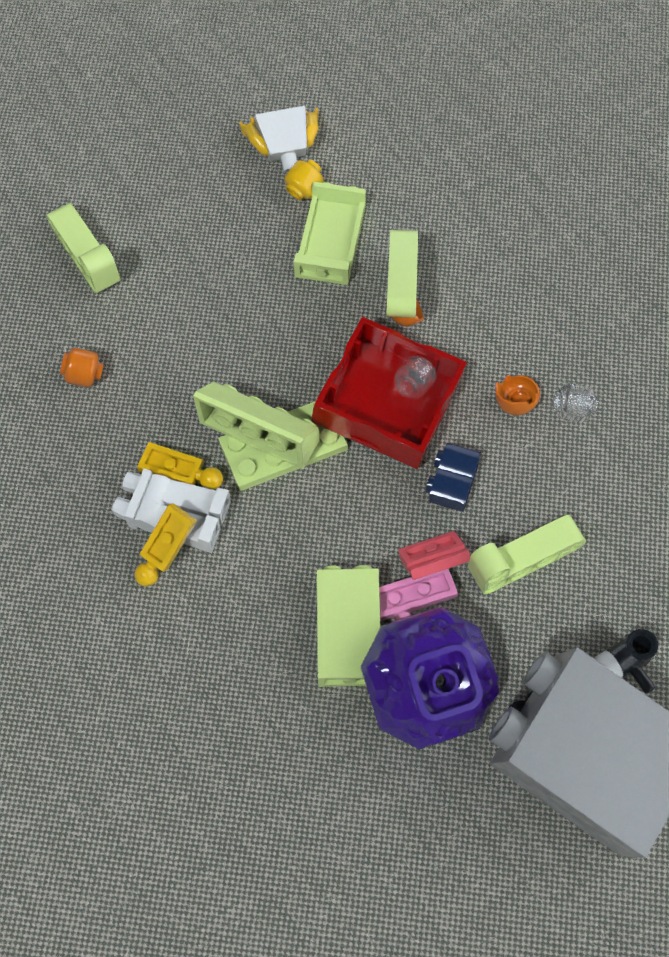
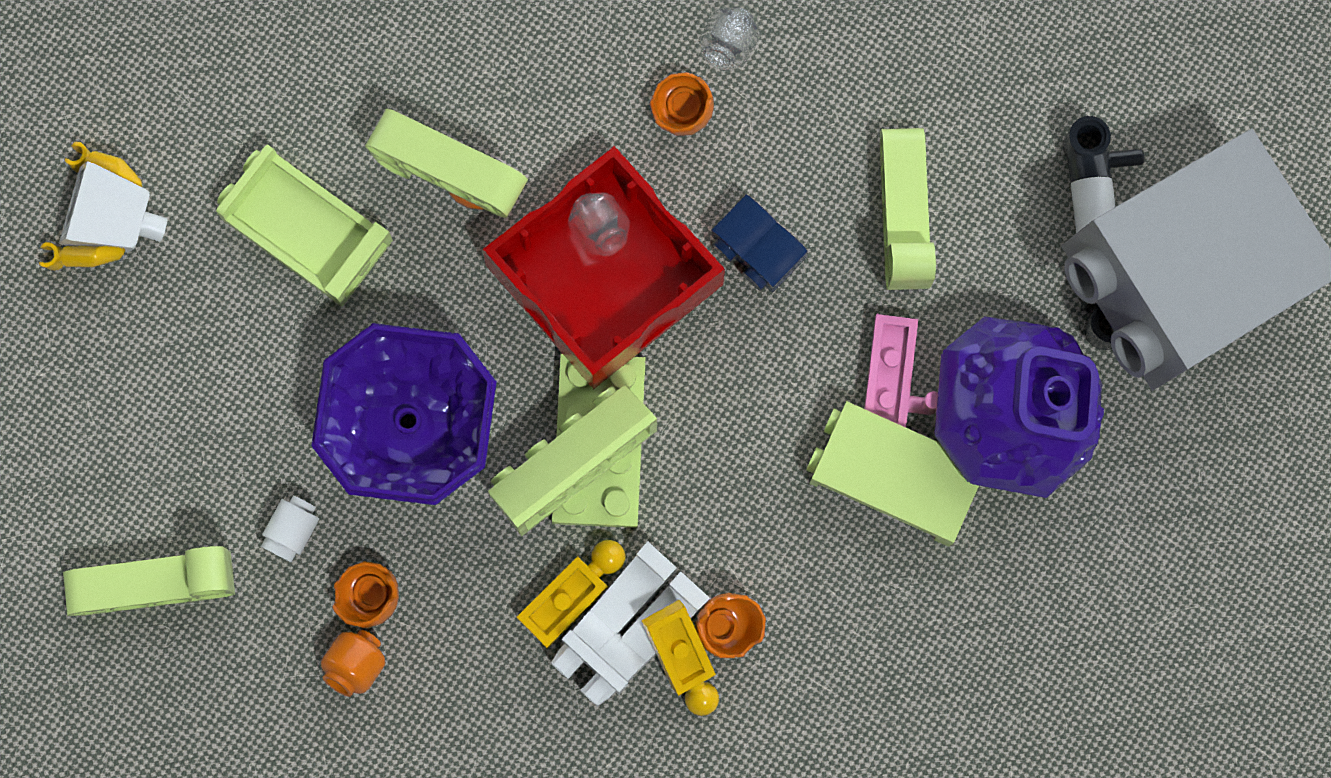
camera: 70 degrees left, 15 degrees up
(125, 356) = (366, 595): none -> orange hair
(147, 301) = (290, 528): none -> white brick
(198, 565) = (730, 625): none -> orange hair
(237, 315) = (396, 374): none -> dark purple rock
(301, 178) = (194, 220): yellow head -> none
(434, 555) = (855, 323): coral plate -> none

